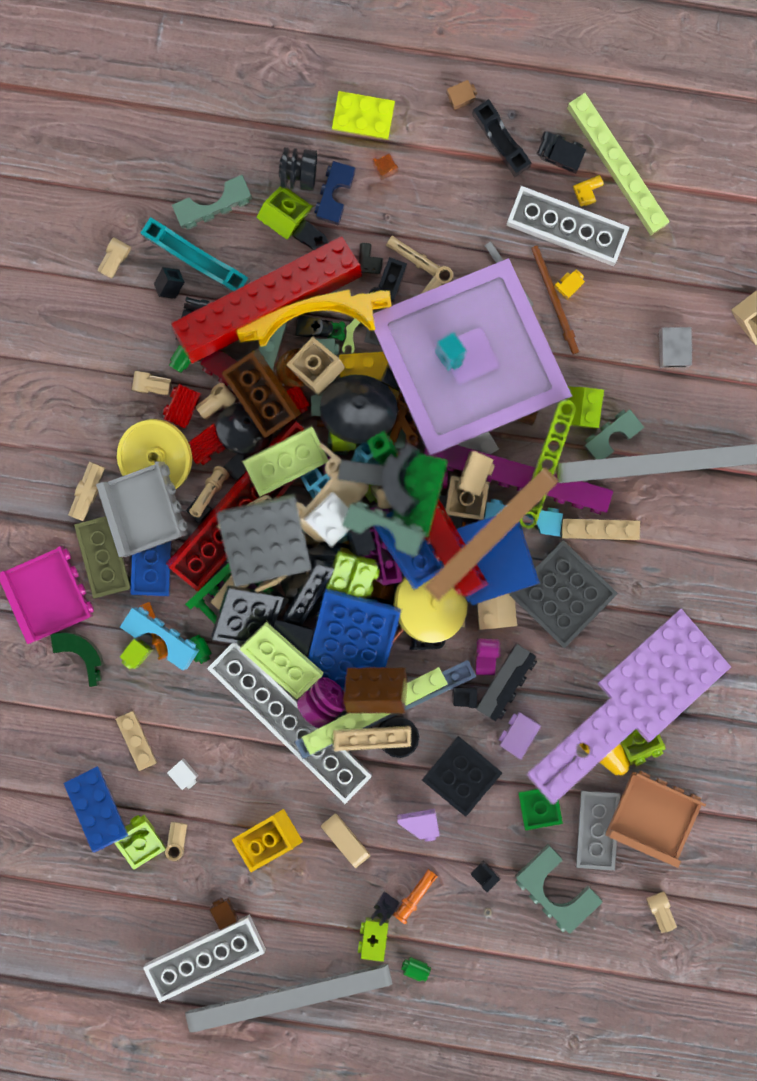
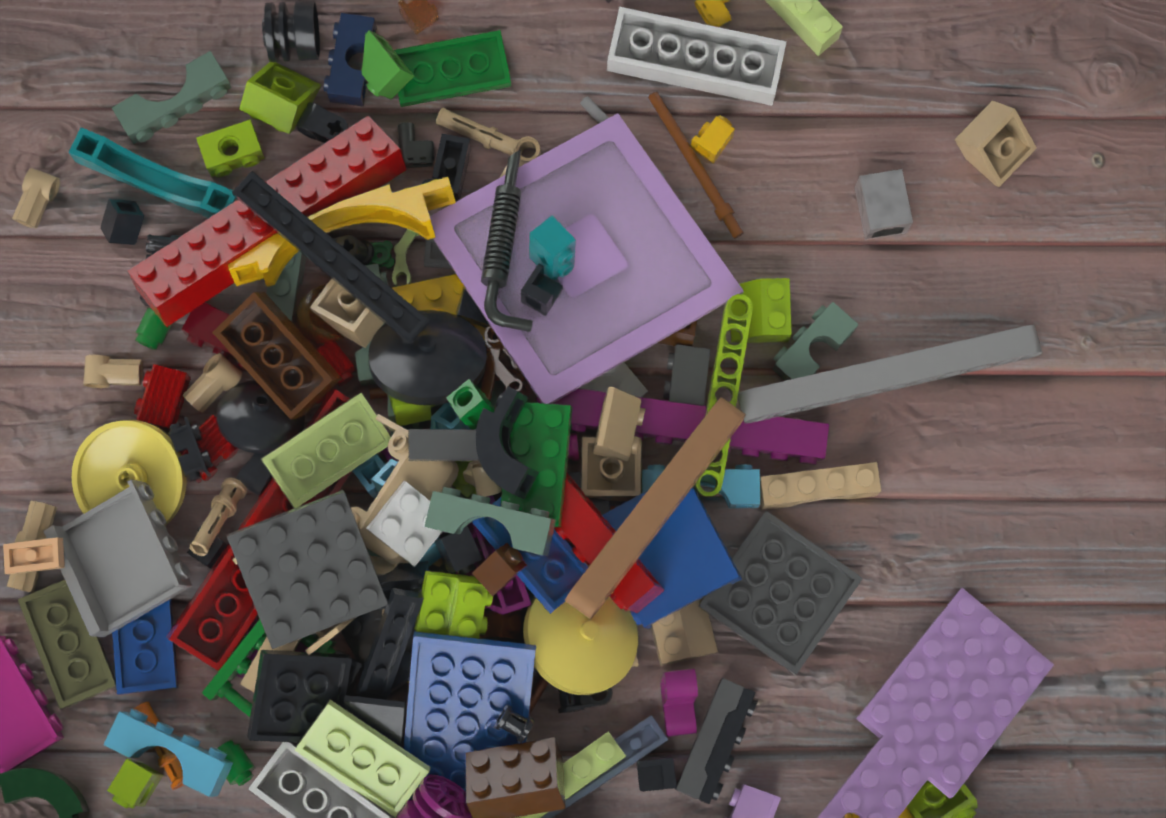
camera: 15 degrees left, 10 degrees down
(88, 500) = (34, 555): none -> light nougat plate
(196, 438) = (188, 438): none -> black hinge
(236, 240) = (216, 143): none -> lime brick
(304, 335) = (331, 257): none -> black tile
(356, 203) = (383, 67): none -> bright green slope
(380, 655) = (514, 723): none -> black bush
(385, 558) = (500, 568): none -> reddish brown brick
(401, 208) = (454, 68): none -> green plate
(417, 341) = (500, 246): none -> pearl dark grey piece
(439, 377) = (540, 291): none -> black panel
(527, 444) = (688, 375): none -> dark grey brick

